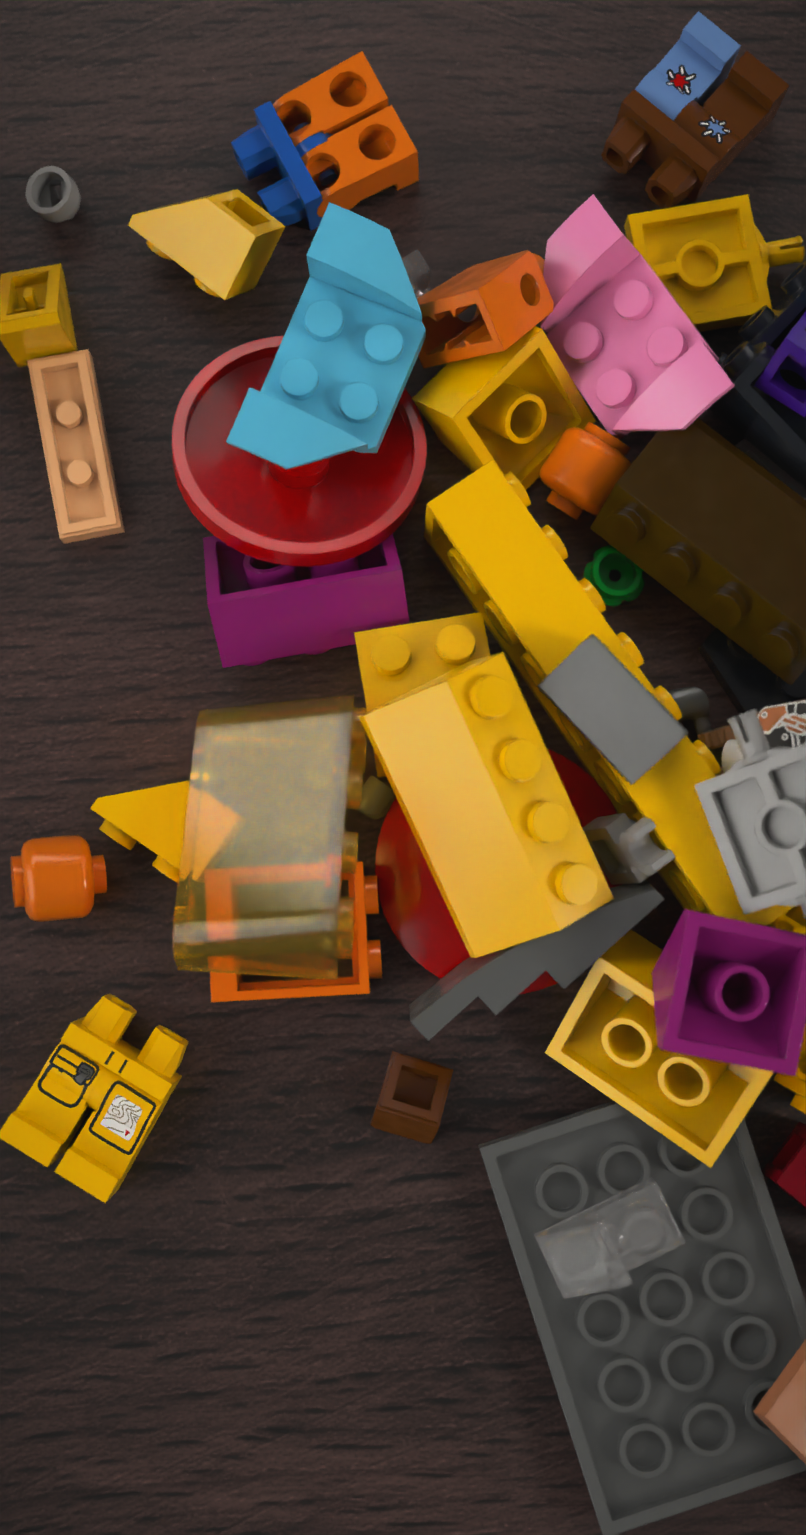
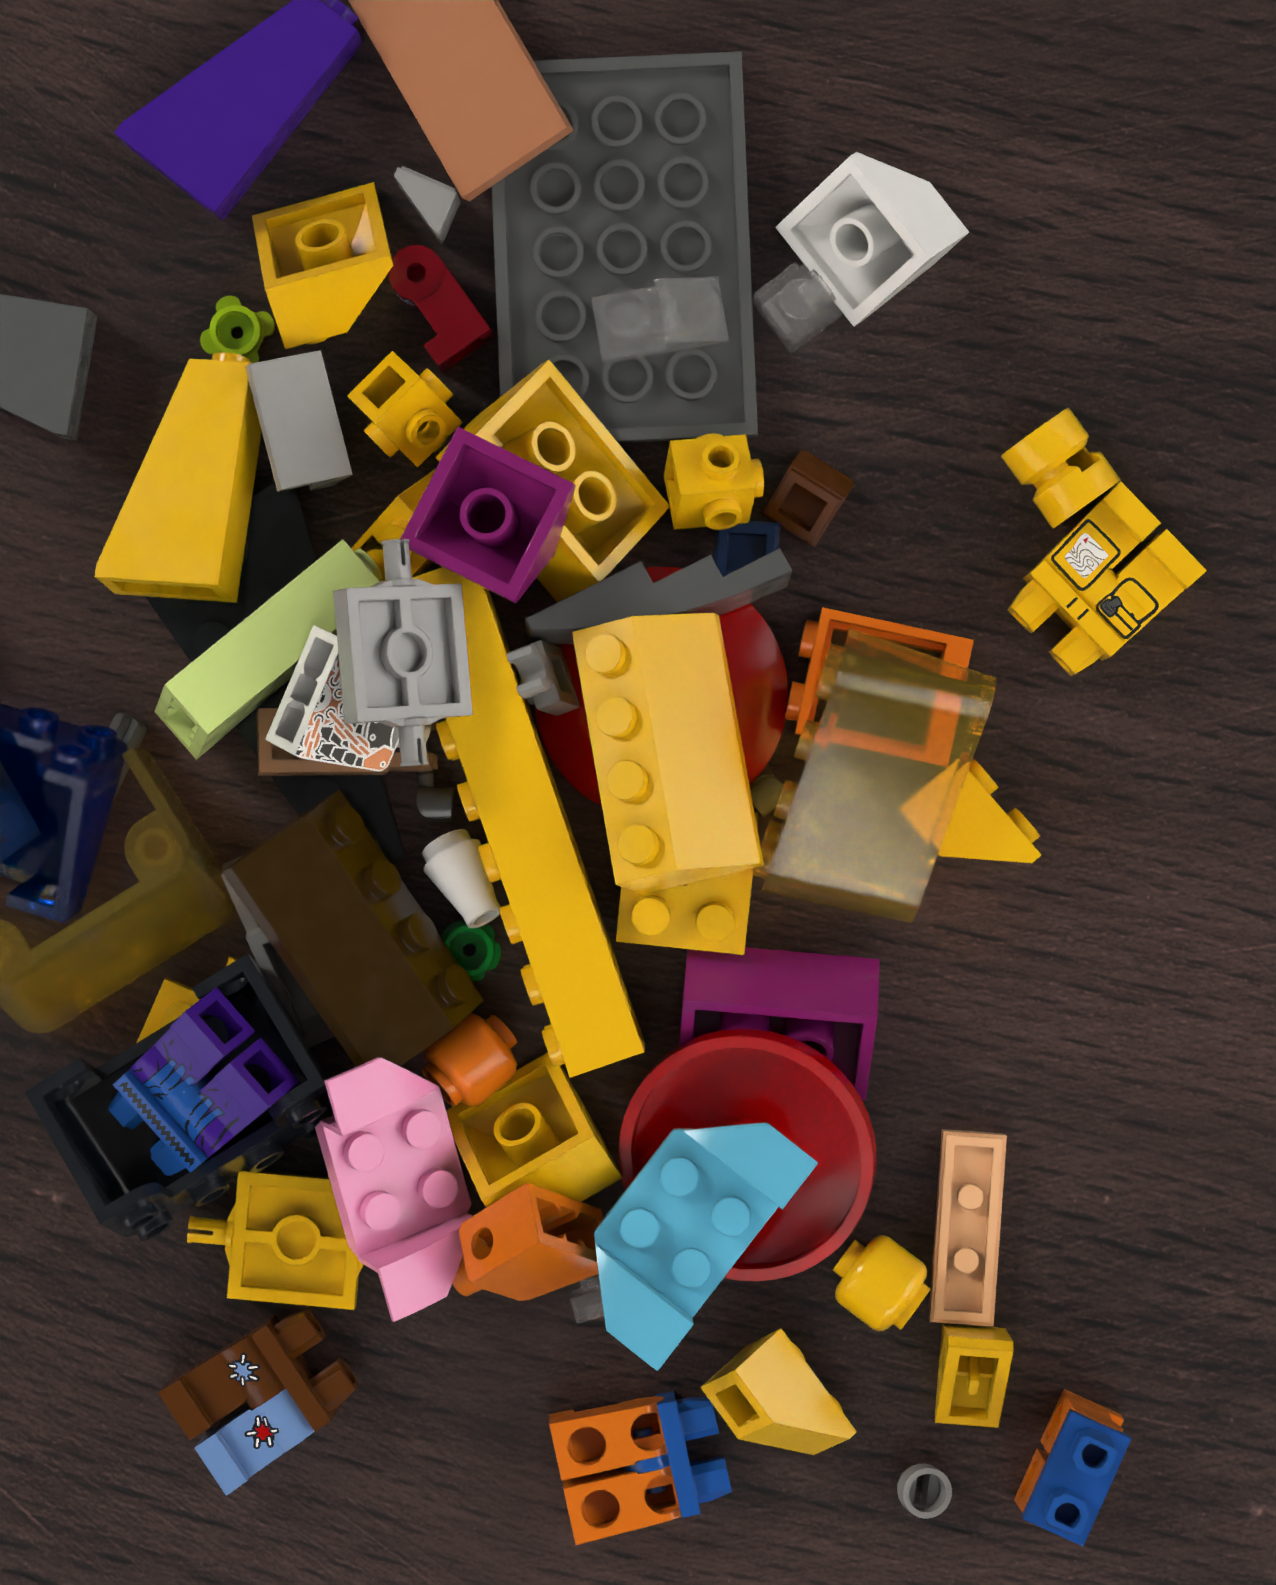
camera: 165 degrees left, 5 degrees up
(57, 878) = (1092, 799): orange head -> none
(141, 367) = (881, 1283): none -> yellow head
(170, 1198) = (1060, 467): none -> yellow wheel
(423, 1386) = (870, 232): none -> white slope
(464, 1036) = (744, 544): none -> dark blue tile
(476, 1290) = (797, 305): none -> clear brick
(511, 1089) = (712, 481): none -> yellow brick
(612, 709) = (528, 805): dark grey slope -> none
(655, 639) = (459, 874): none -> white cone

